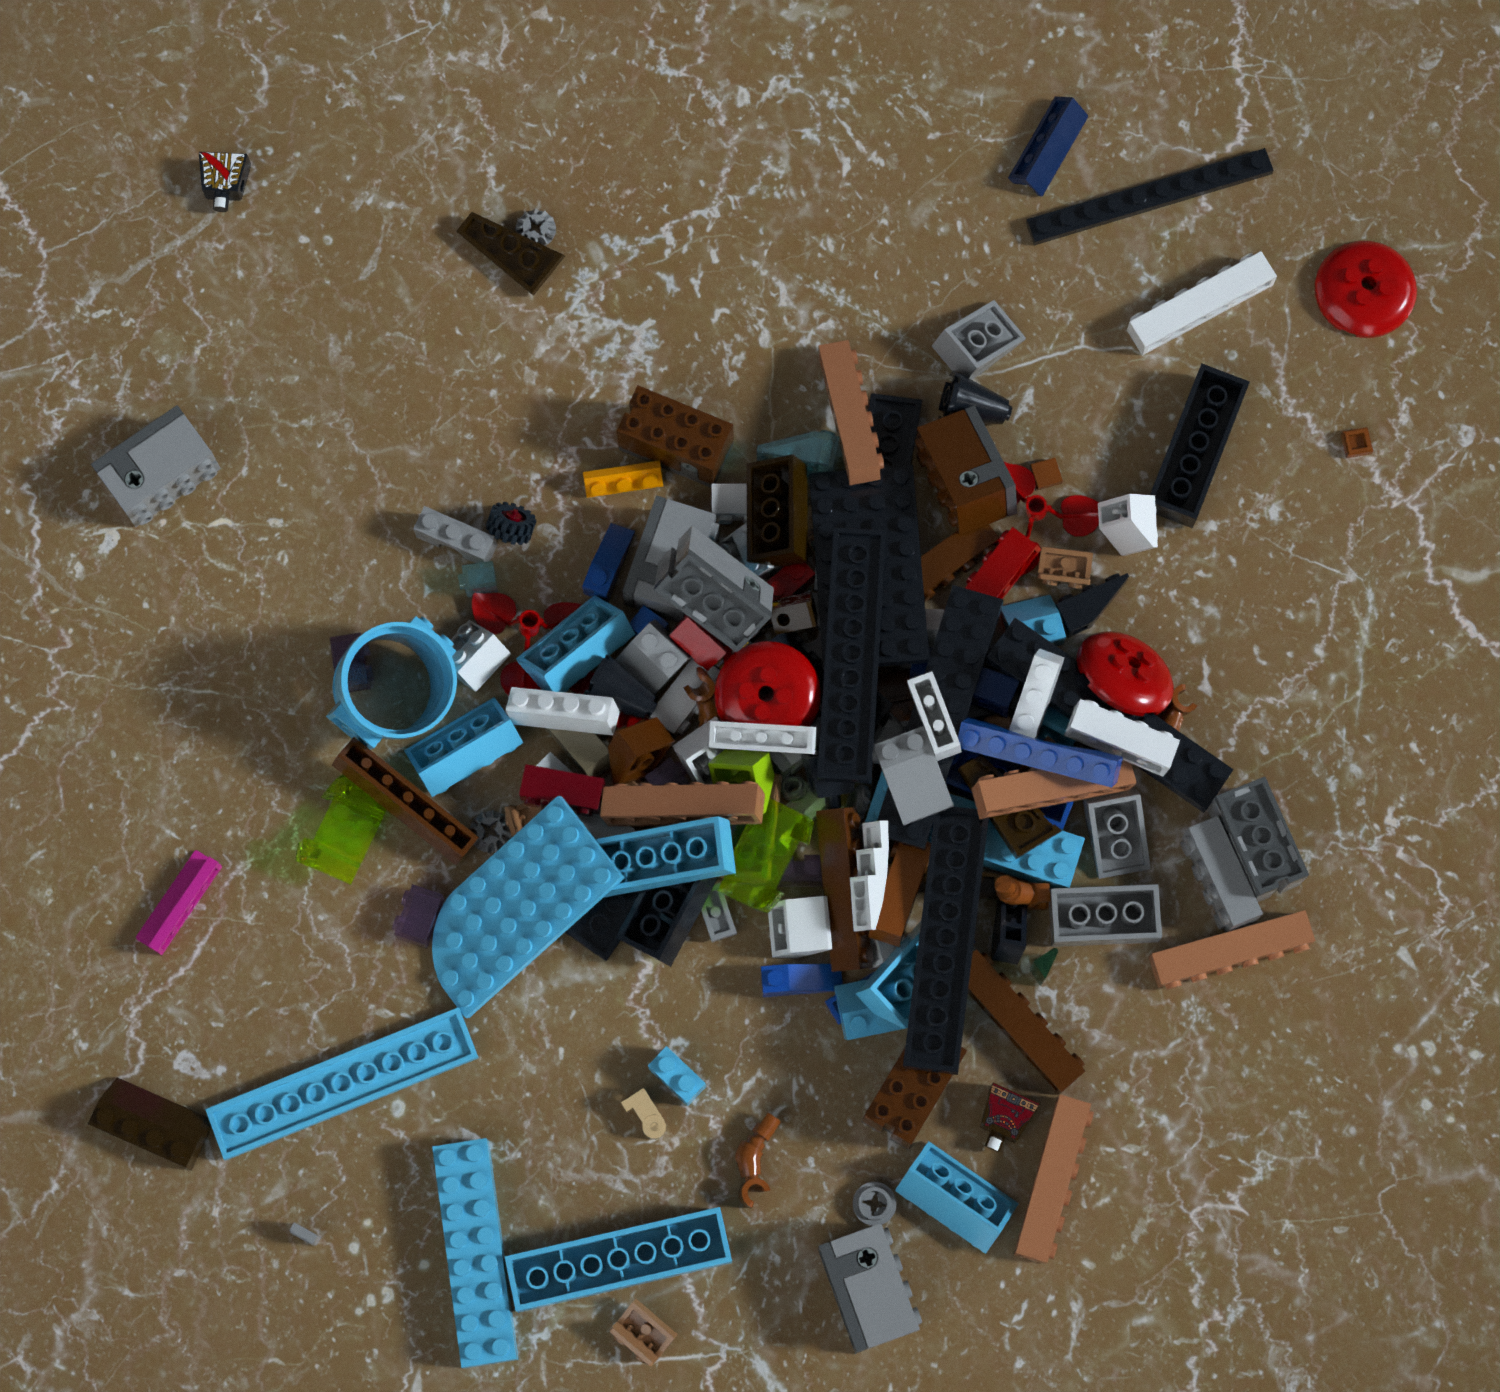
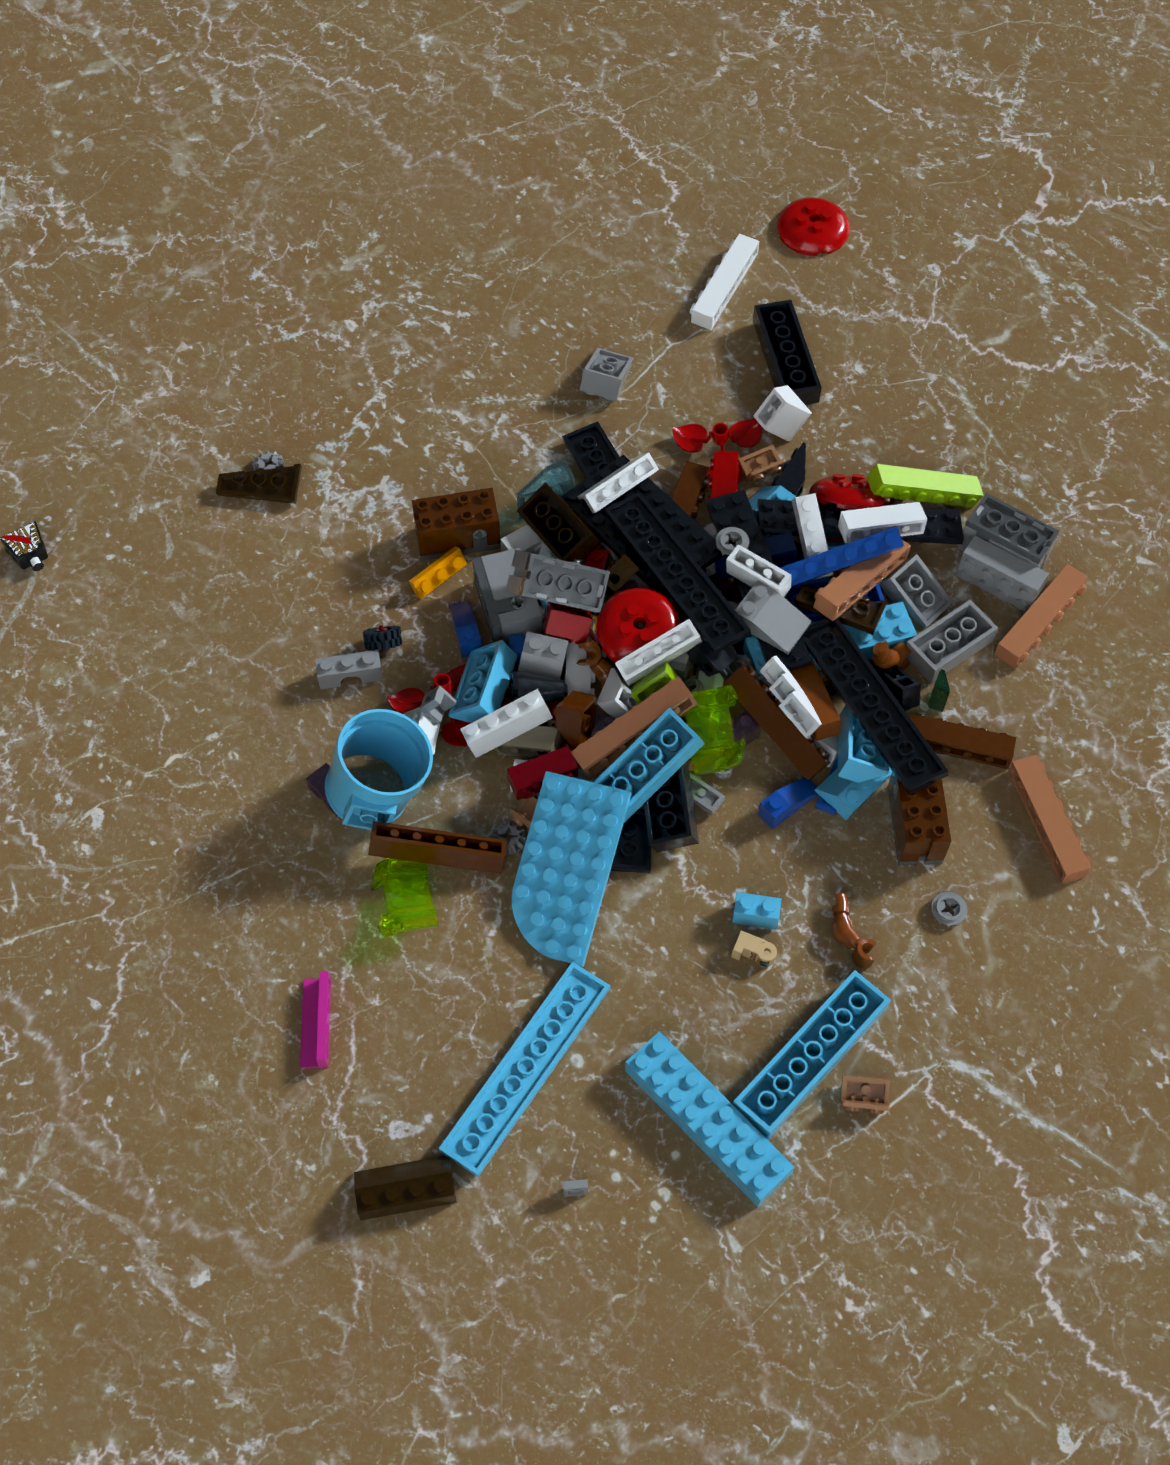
camera: 35 degrees left, 15 degrees down
(156, 466) = (101, 743): light grey piece -> none
(418, 916) = (499, 920): clear purple brick -> none
(463, 747) = (451, 792): medium azure slope -> none
(478, 578) = (383, 685): clear light blue brick -> none
(509, 639) = (436, 703): none -> light grey panel
(800, 927) = (766, 764): white slope -> none
(849, 412) = (558, 446): nougat brick -> none
(873, 1296) = (992, 960): light grey piece -> none
(876, 501) = (619, 482): none -> white panel
(949, 651) = (733, 533): none -> light grey gear
(956, 1197) = (999, 870): medium azure slope -> none
(966, 393) = (629, 405): black cone -> none
(966, 470) = (669, 435): reddish brown piece -> none
(1005, 1116) = (987, 798): torso -> none
(1046, 473) = (707, 420): dark orange tile -> none
(1049, 144) = (564, 249): dark blue panel -> none
(1149, 196) = (646, 247): black plate -> none
(1214, 718) = (924, 485): none -> lime brick
(1356, 442) = (876, 305): dark orange tile -> none

